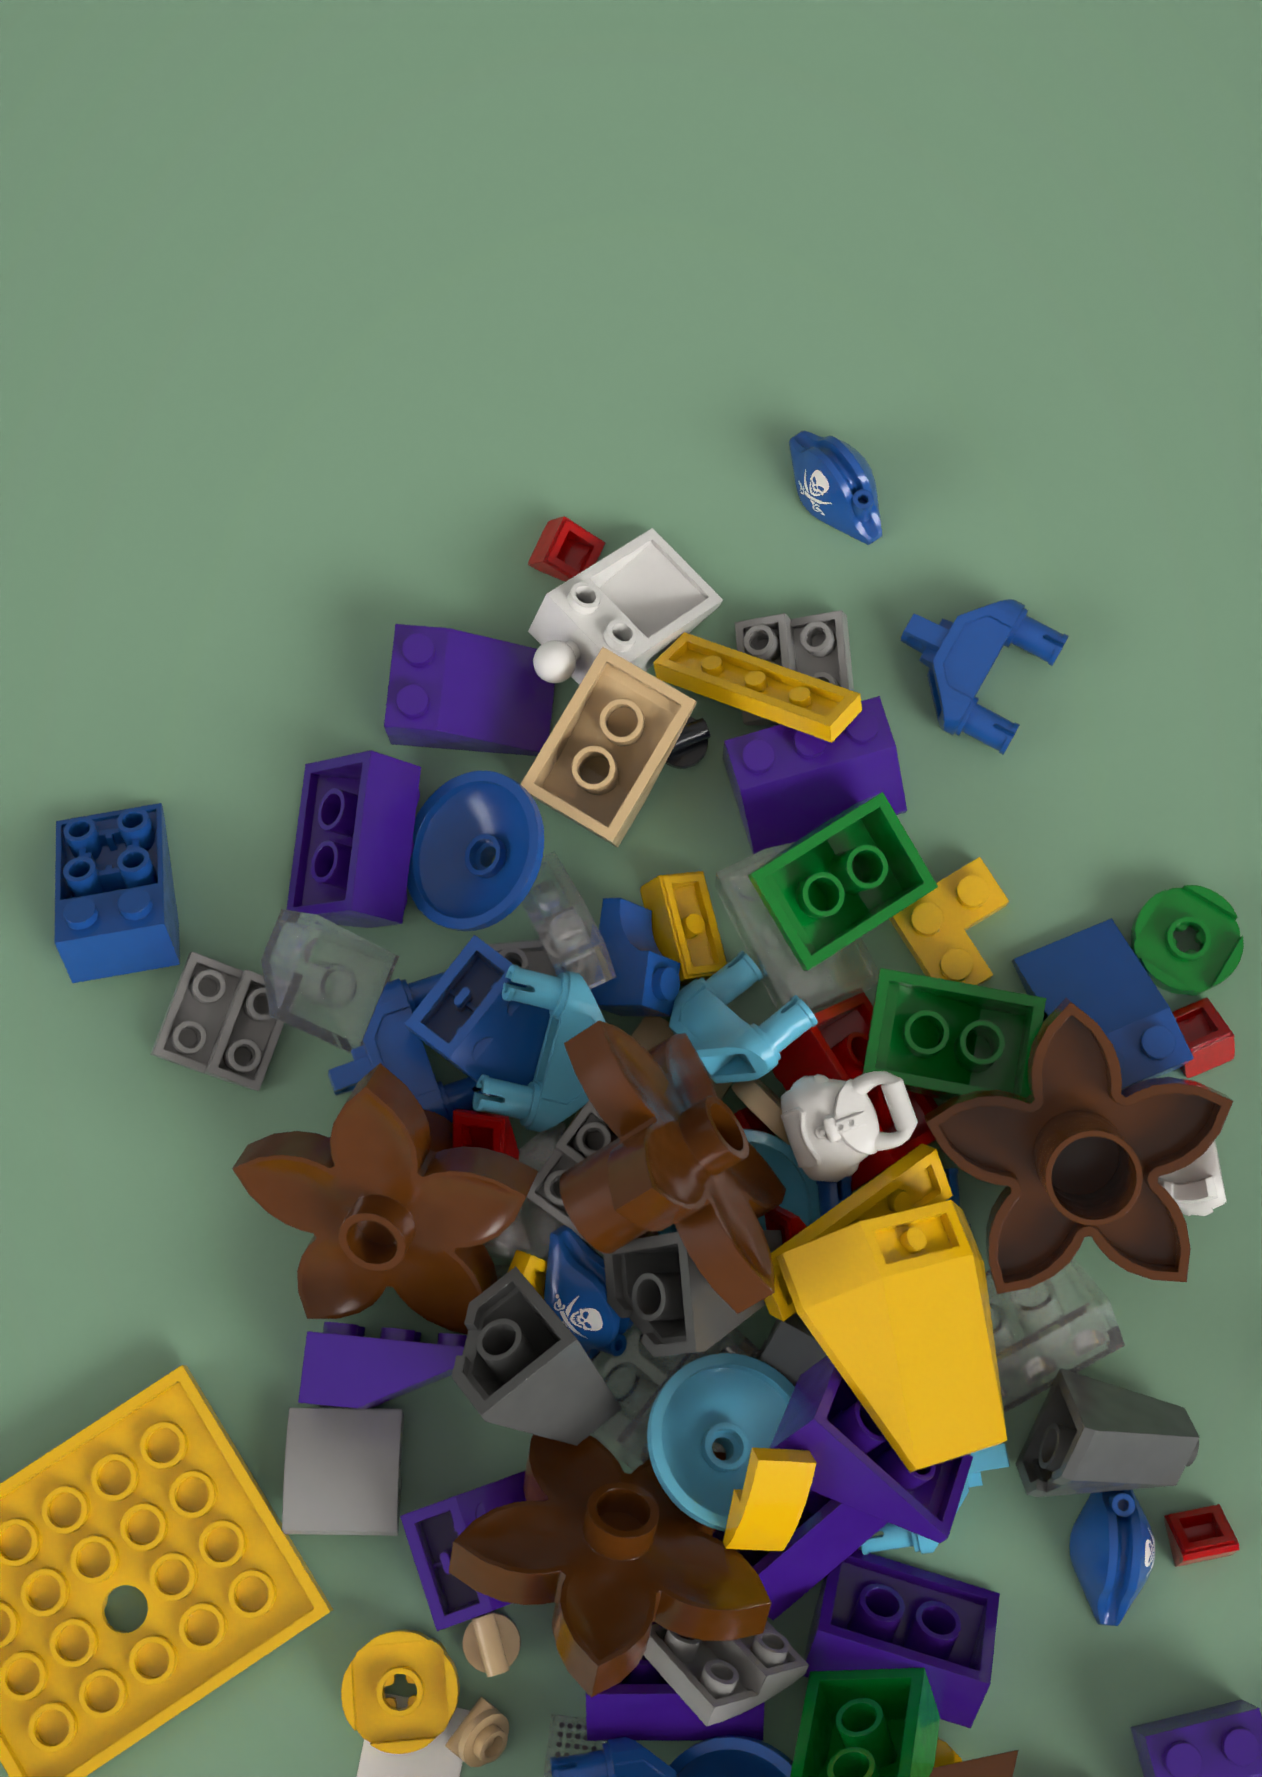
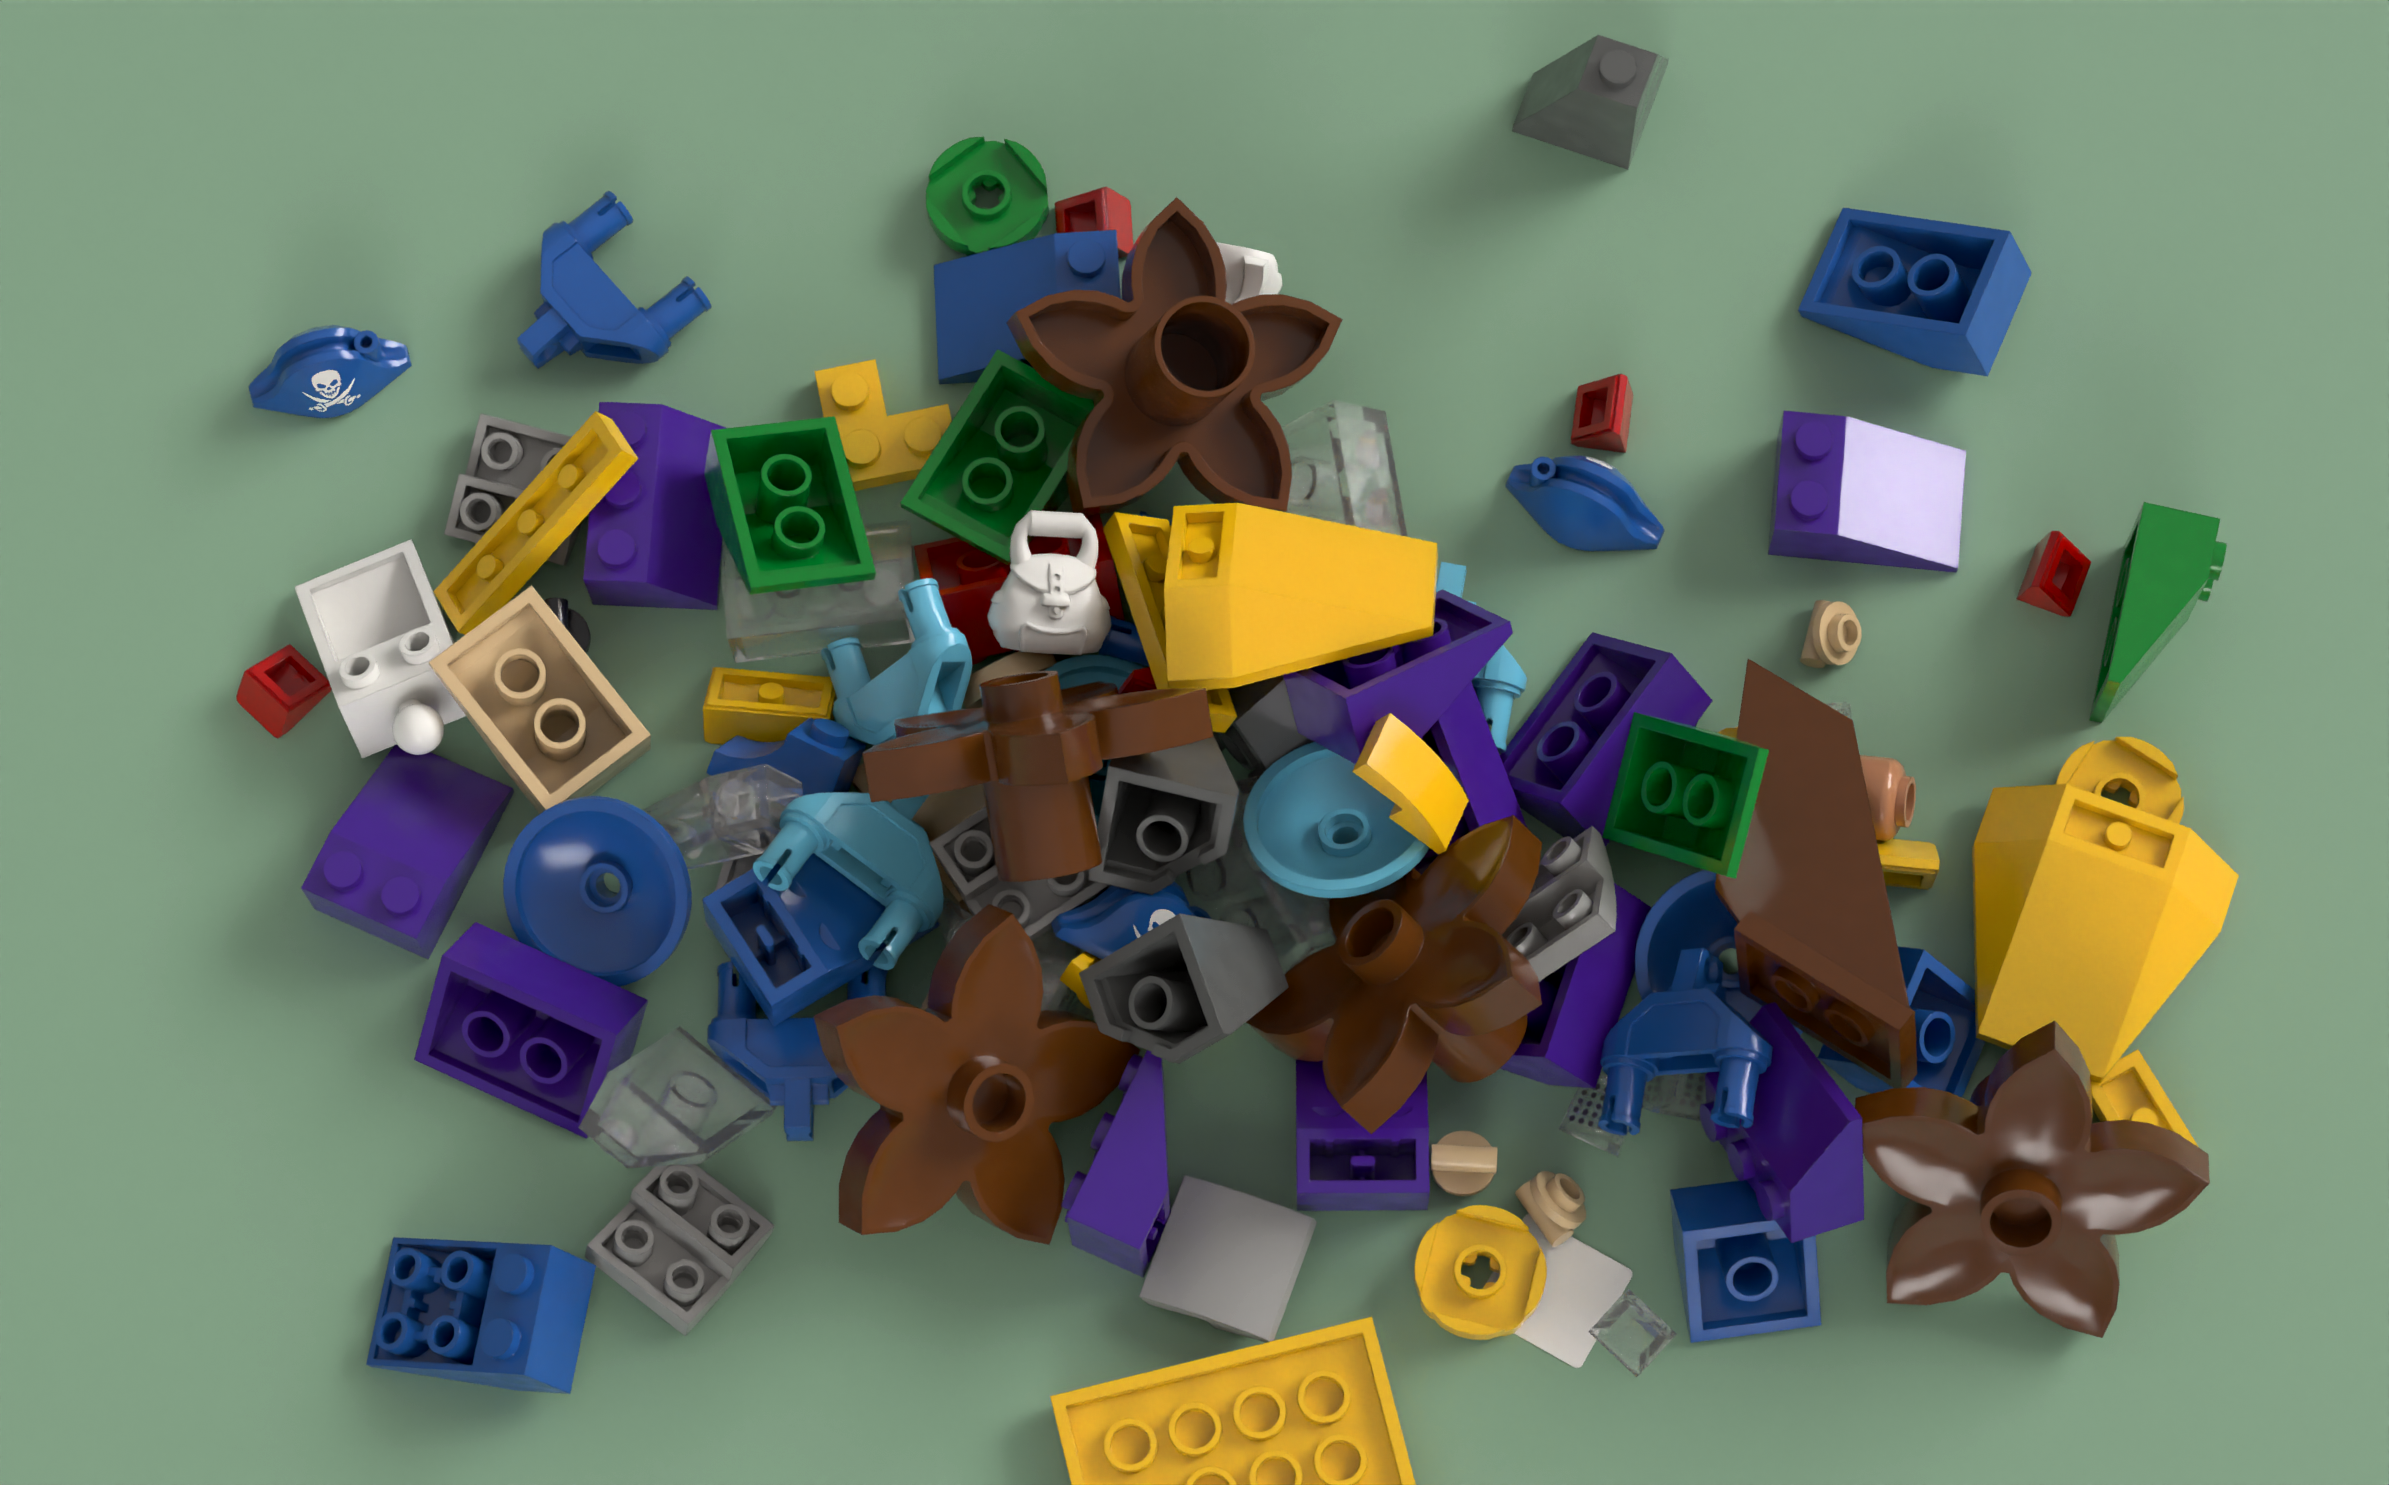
camera: 70 degrees left, 5 degrees down
(484, 1131) = (915, 969): red slope -> none
(1104, 1440) = (1472, 467): dark grey slope -> none

